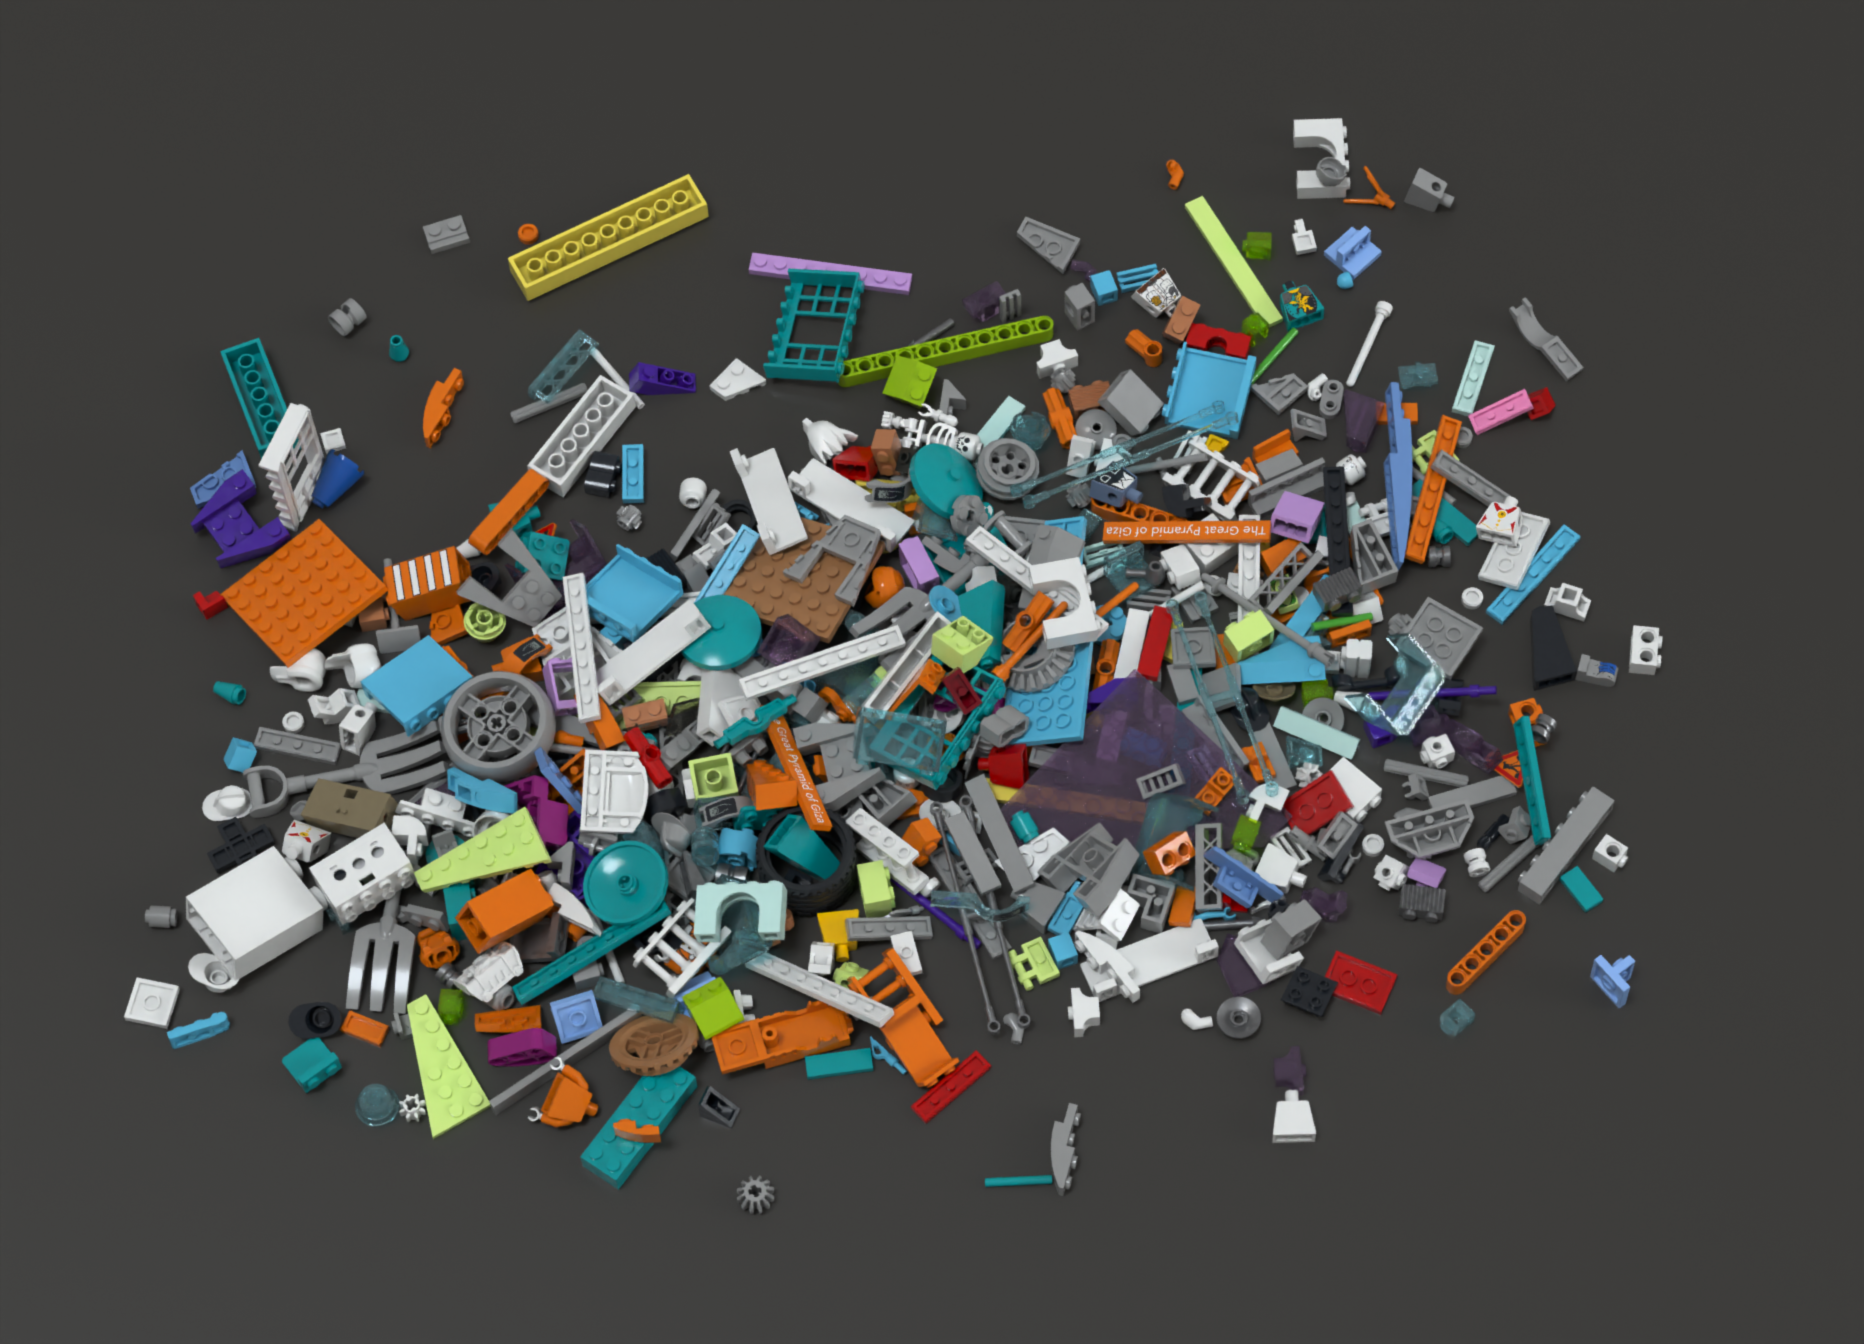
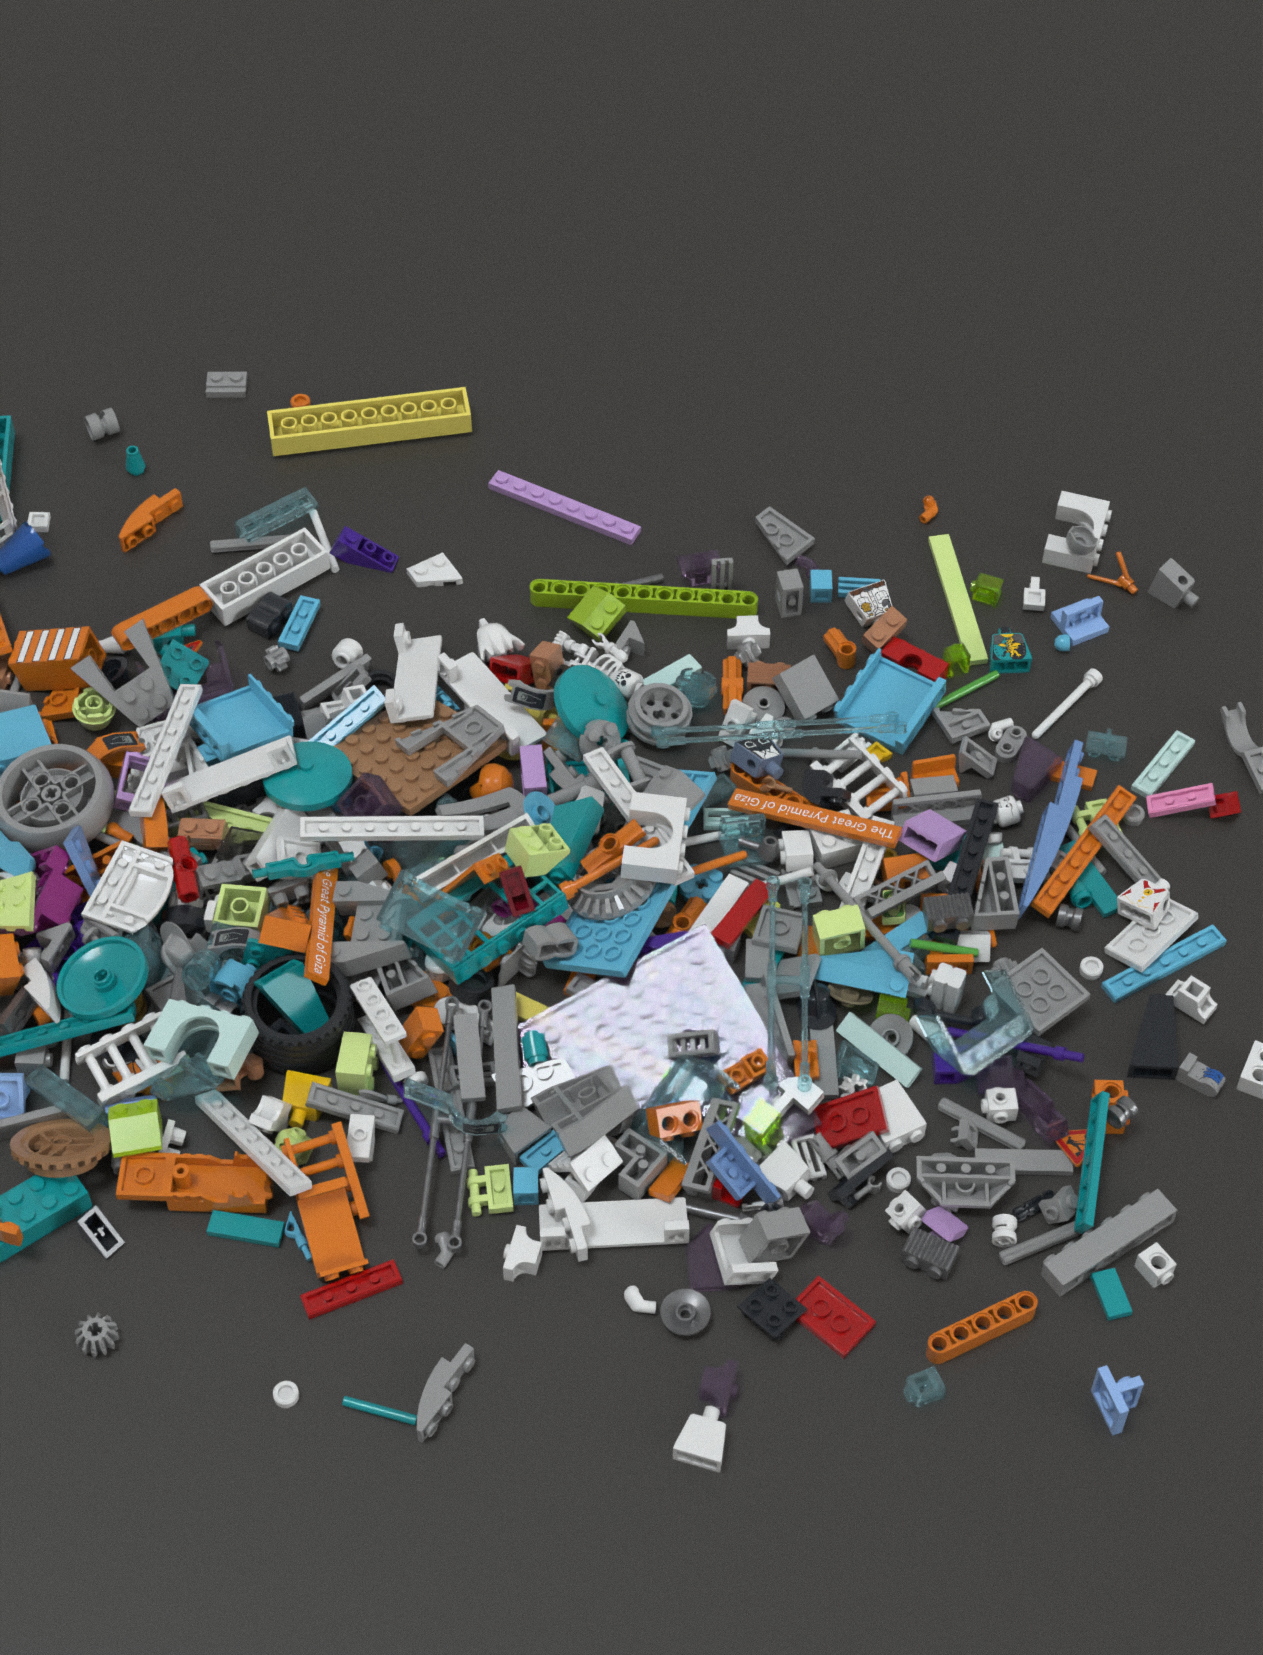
camera: 15 degrees right, 10 degrees down
(785, 368) = (478, 564): teal window -> none
(934, 1192) = (286, 1394): none -> white tile
(1007, 765) = (542, 984): red torso -> none
(1136, 509) = (771, 784): none -> medium nougat hand
(1214, 914) = (702, 1198): medium azure piece -> none

